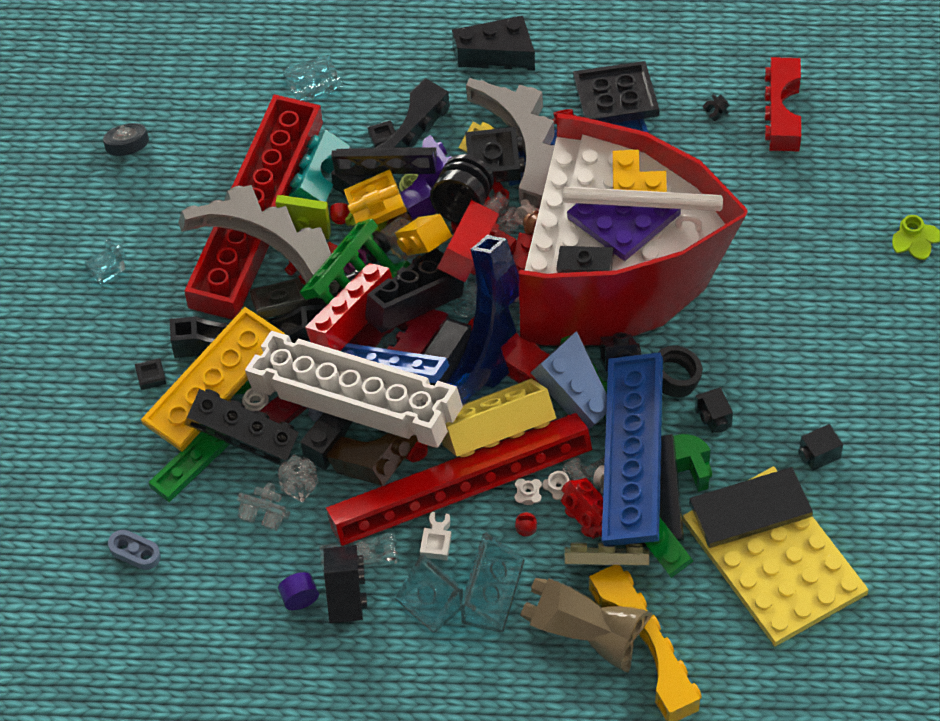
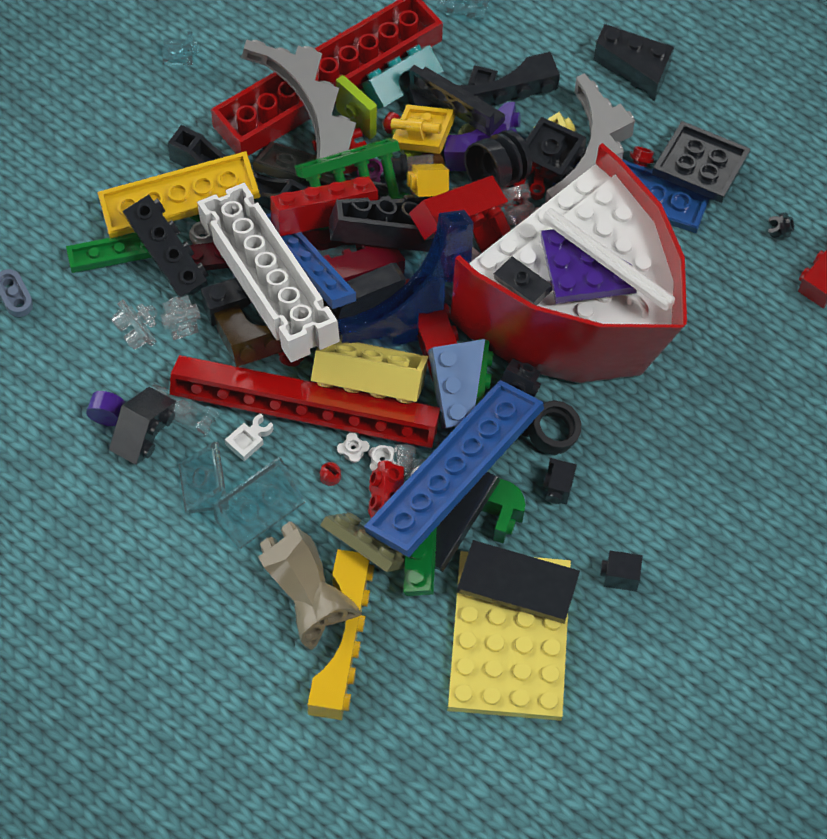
camera: 30 degrees right, 5 degrees up
(150, 374) = (141, 161): black tile -> none
(628, 175) = (618, 234): yellow plate -> none

